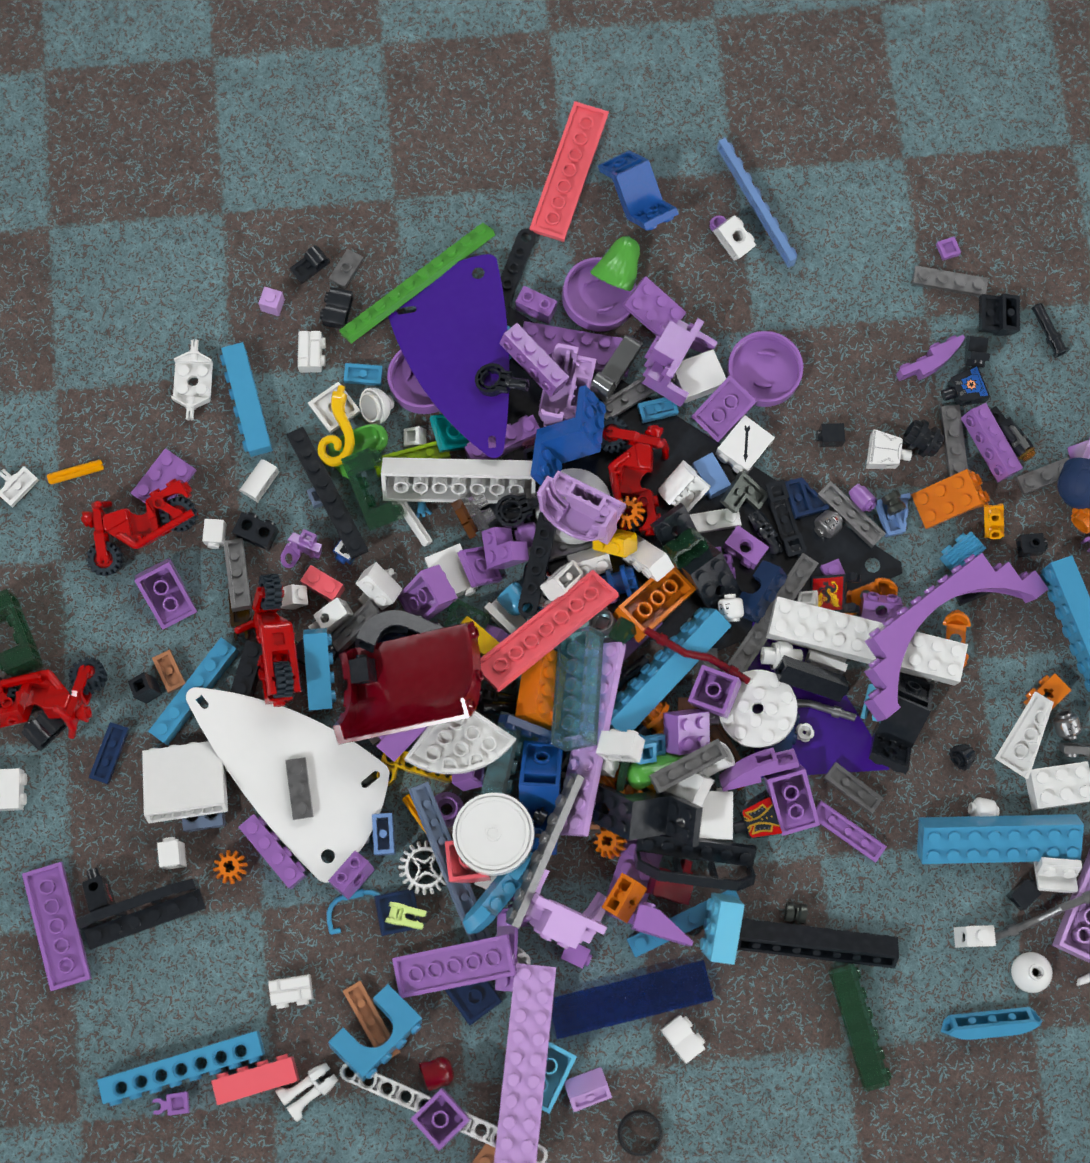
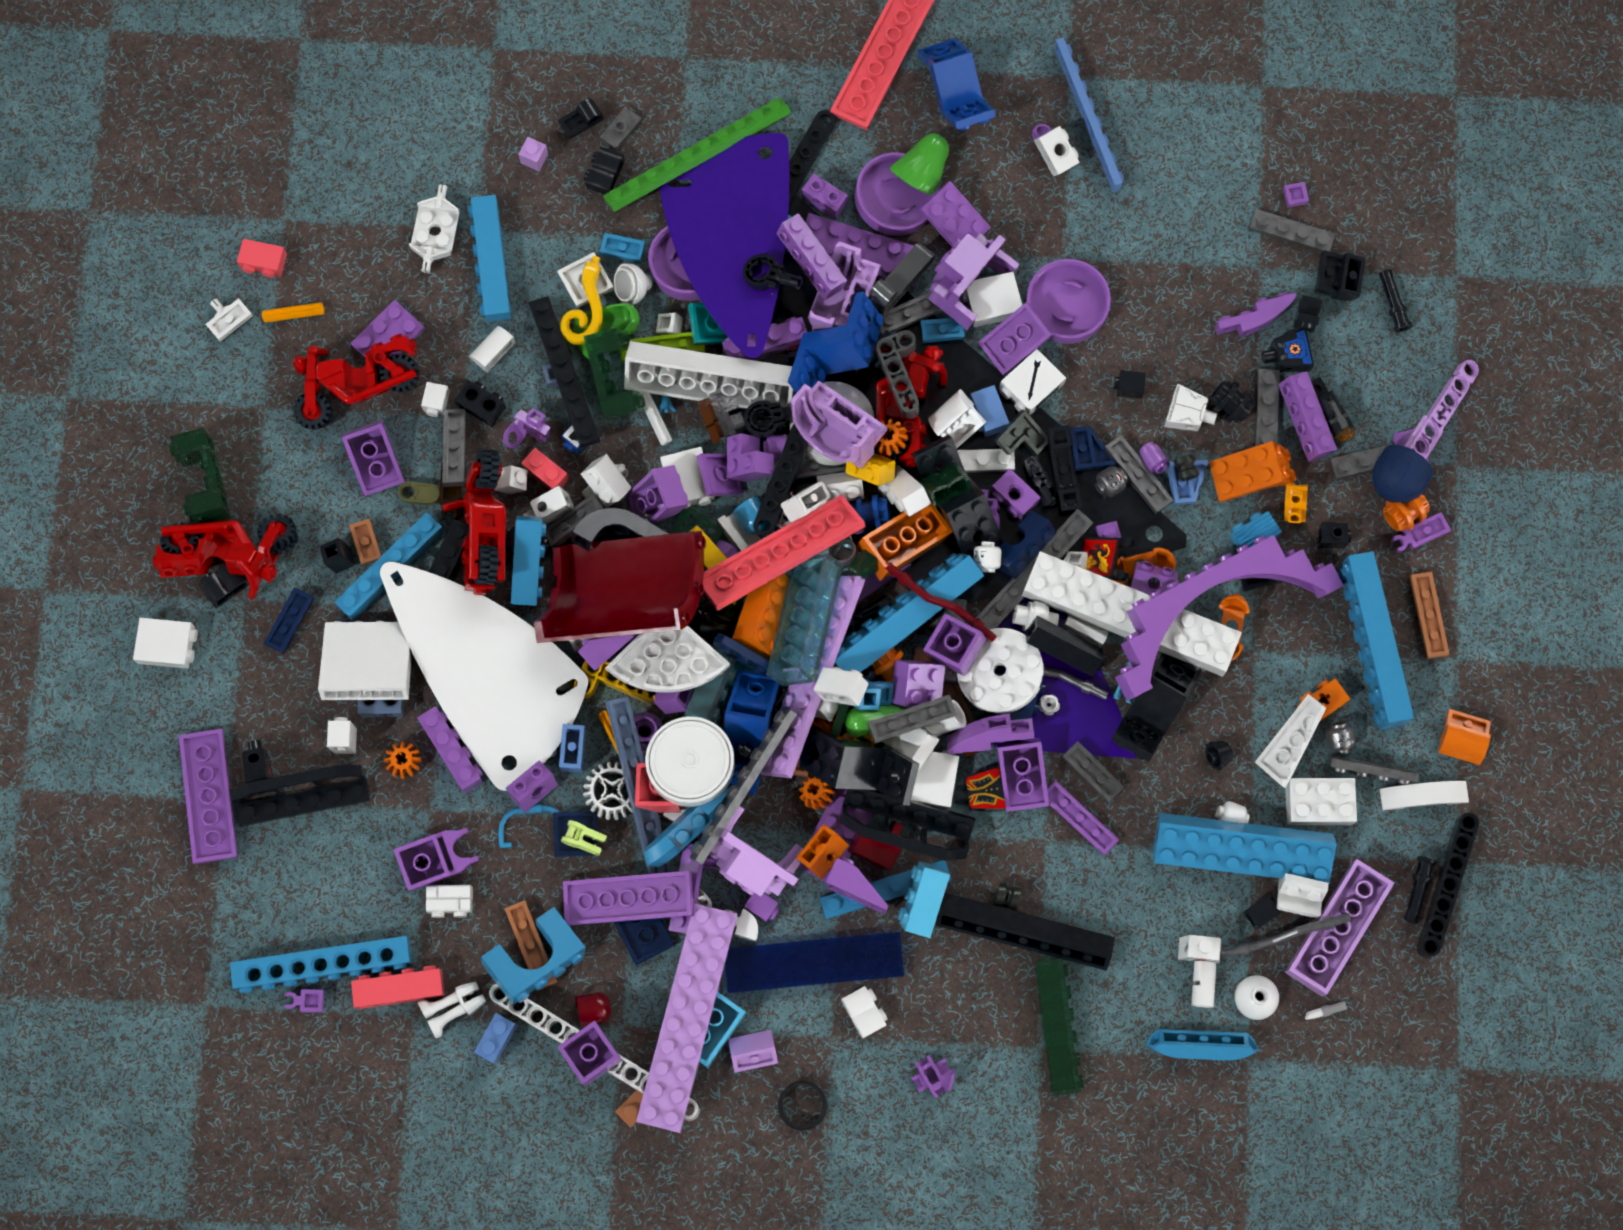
camera: 10 degrees right, 0 degrees up
(40, 427) = (261, 258): none -> coral brick
(215, 620) = (424, 493): none -> olive piece
(278, 954) = (440, 856): none -> medium lavender brick
(299, 788) = (488, 686): flat silver plate -> none
(310, 351) = (568, 215): white brick -> none
(351, 1114) = (495, 1038): none -> medium blue brick
(362, 670) = (575, 568): black brick -> none
(564, 974) = (746, 926): none -> white brick
(631, 456) = (900, 377): none -> dark grey beam
(749, 1090) = (929, 1079): none -> medium lavender piece
(983, 967) = (1204, 984): none -> white pin

